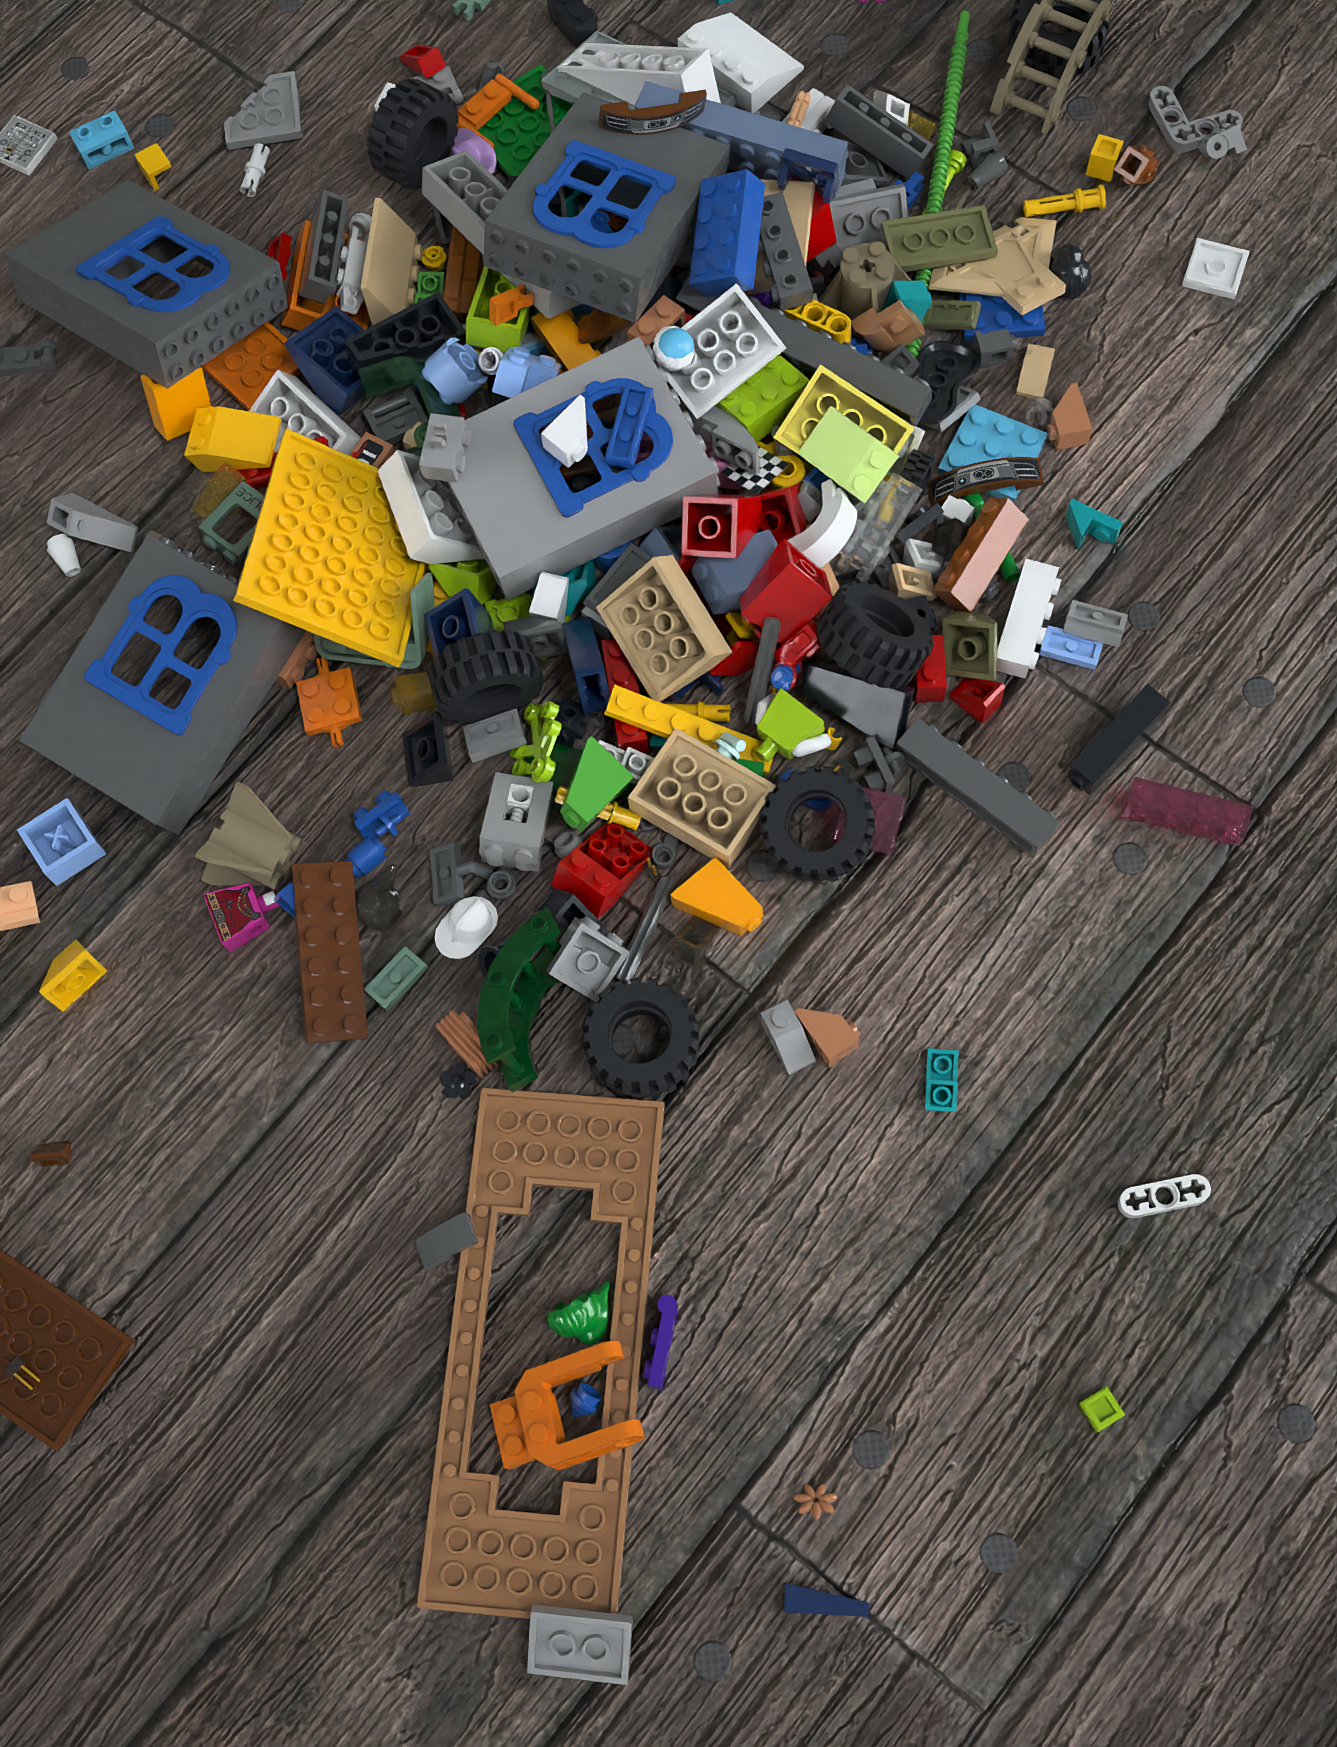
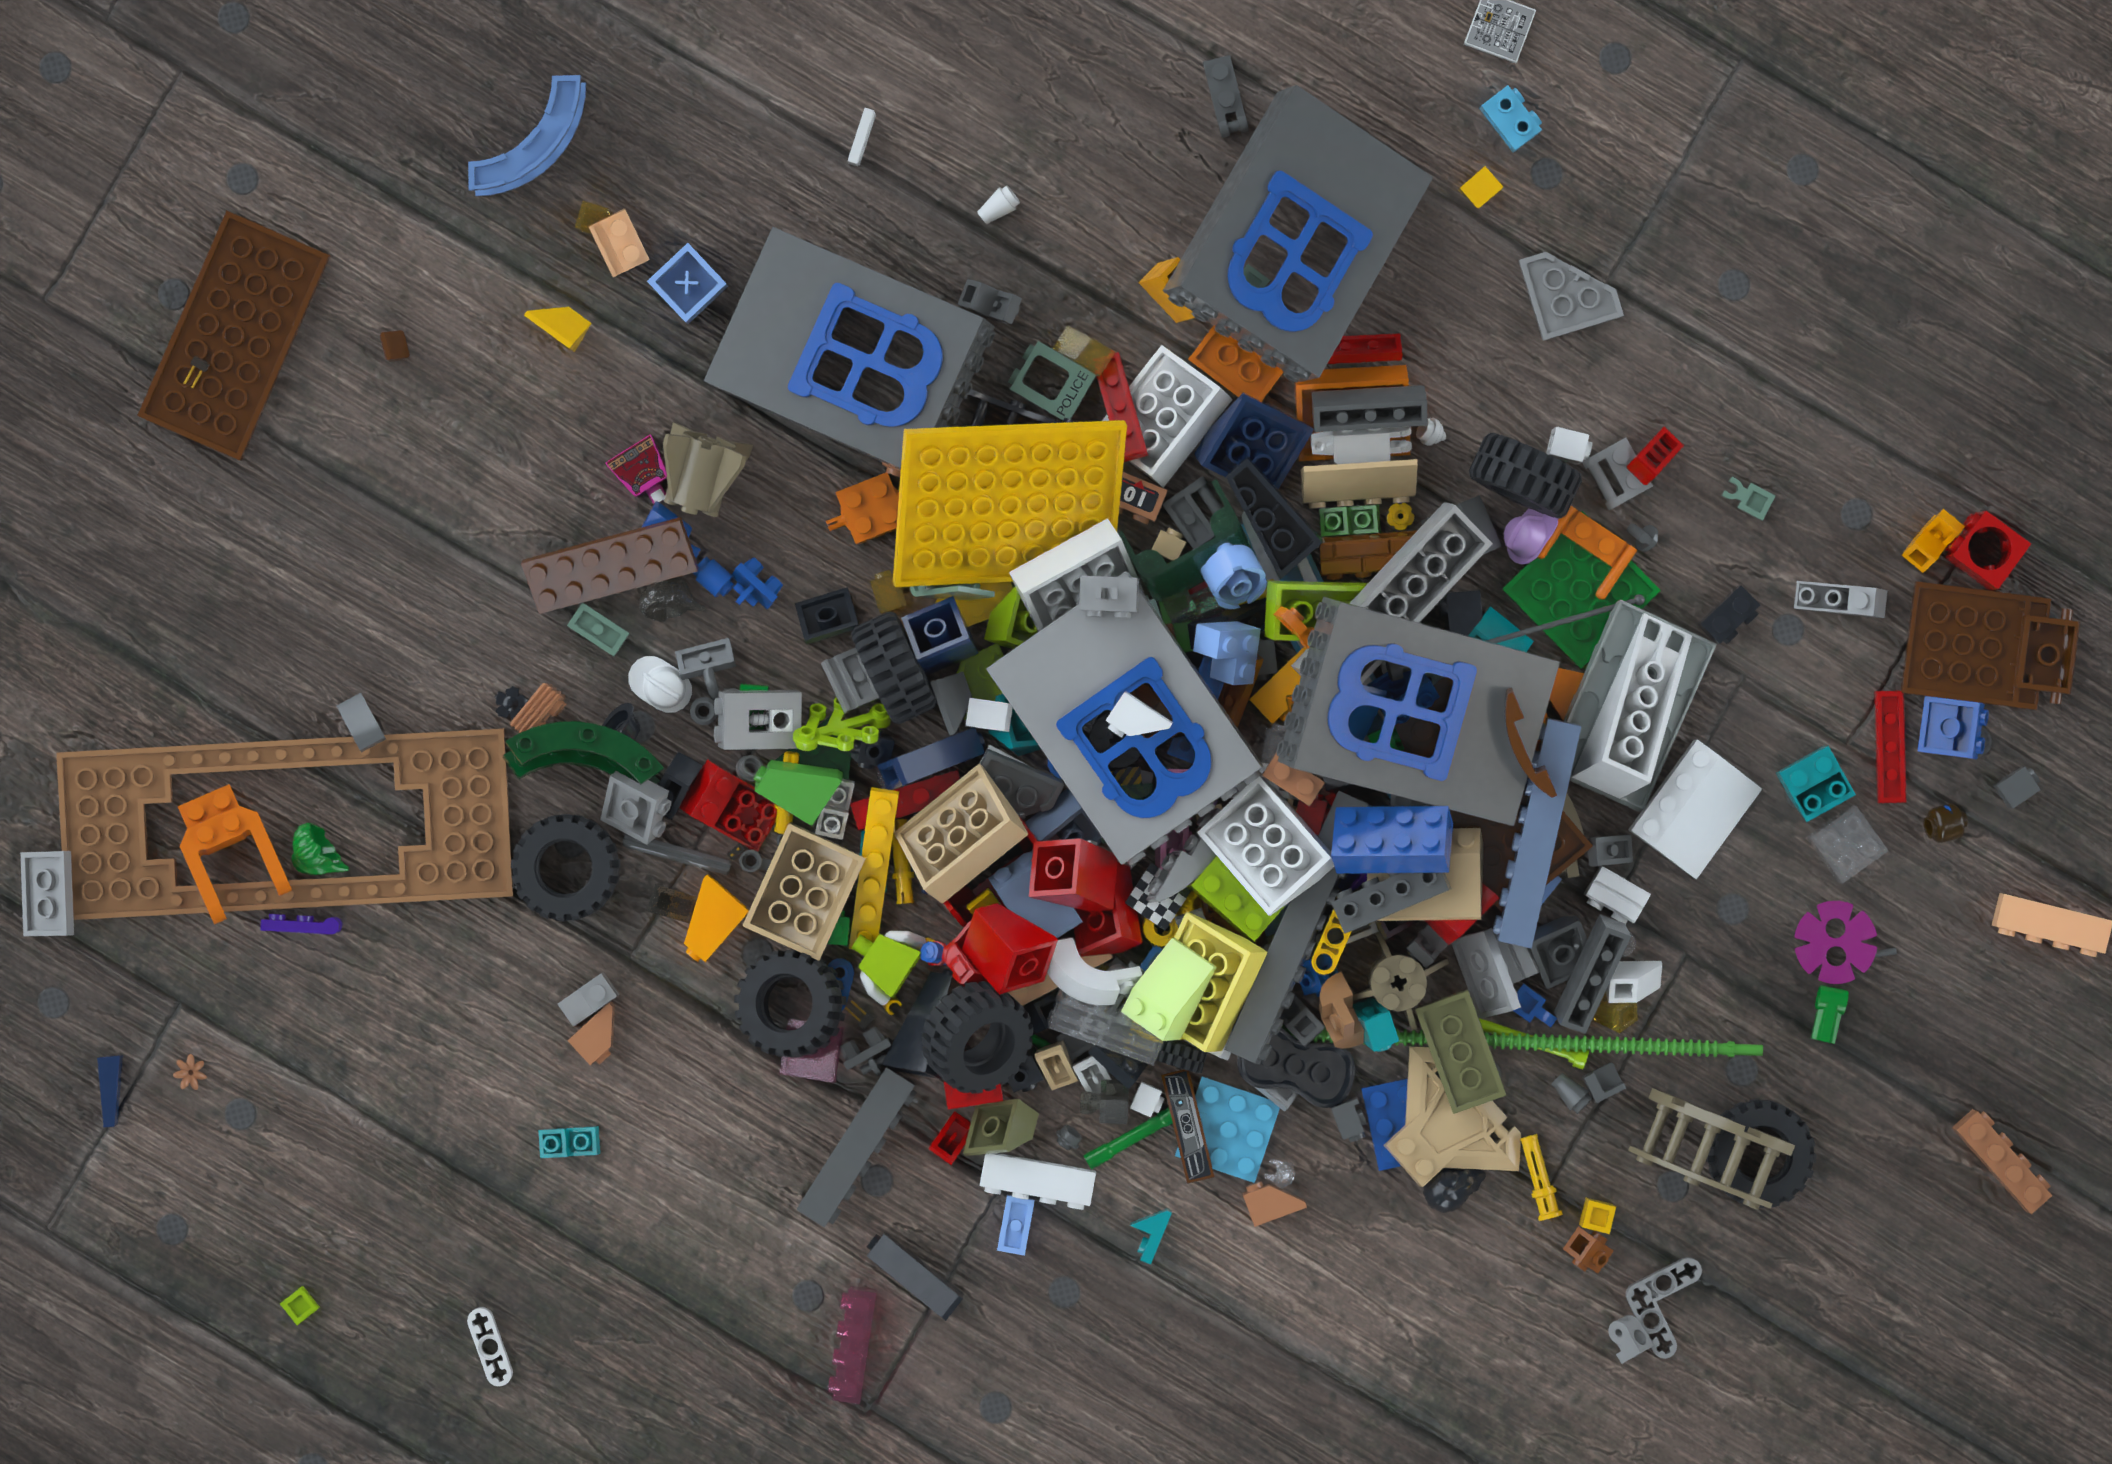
camera: 75 degrees right, 20 degrees up
(90, 522) = (1034, 225): light grey slope -> none
(231, 437) = (1143, 354): yellow slope -> none
(254, 170) = (1490, 298): white pin -> none
(489, 360) = (1250, 612): white cone -> none
(584, 1400) = (244, 865): blue plate -> none
(629, 426) = (1155, 773): blue tile -> none
(673, 348) = (1259, 802): hair -> none
(730, 745) = (856, 910): light aqua plate -> none
(762, 667) = (938, 931): dark grey axle -> none
(799, 109) = (1606, 883): light nougat axle -> none
(809, 169) = (1482, 916): dark blue piece -> none
(810, 500) = (1128, 956): light grey slope -> none
(952, 315) = (1381, 1075): olive plate -> none
(980, 554) = (1094, 1128): brick -> none
(1035, 371) = (1329, 1164): tan slope -> none
(1095, 623) = (1042, 1245): light grey plate -> none
(1215, 268) = (1476, 1340): white tile -> none

